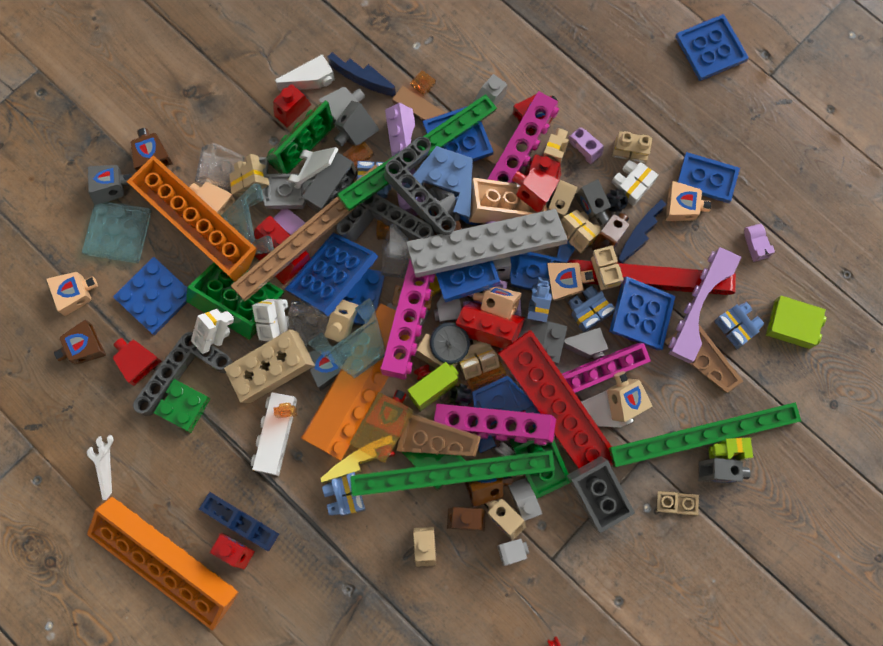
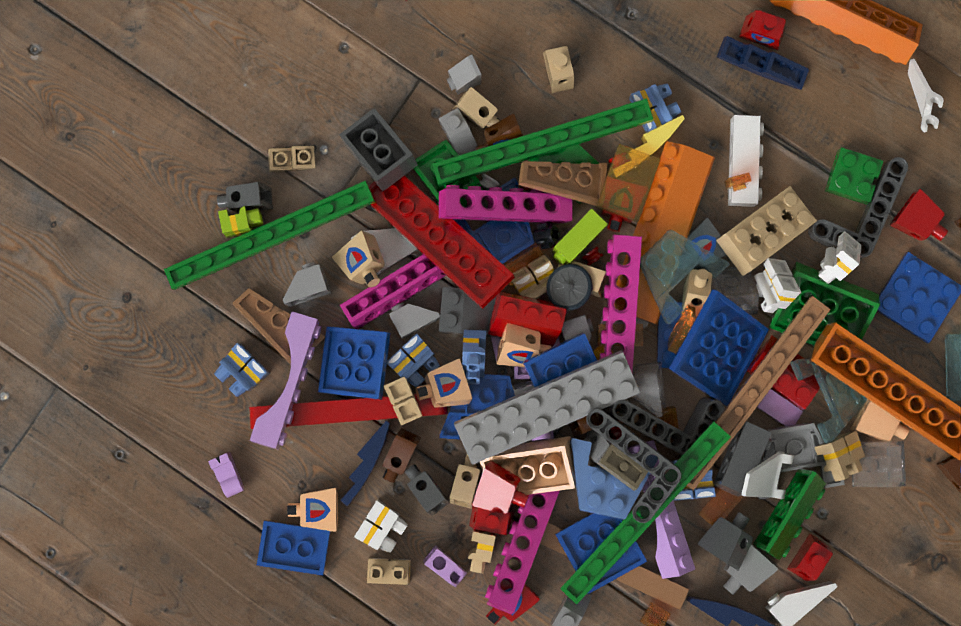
camera: 170 degrees right, 10 degrees up
(359, 293) = (681, 328): none -> clear orange plate
(432, 183) = (622, 467): none -> dark tan plate
(466, 519) = (520, 101): reddish brown torso -> none
(580, 230) = (442, 462): tan hips -> none
(617, 200) = (400, 498): black gear -> none
(676, 383) = (307, 285): none -> light grey slope
(796, 322) = (176, 383): lime brick -> none

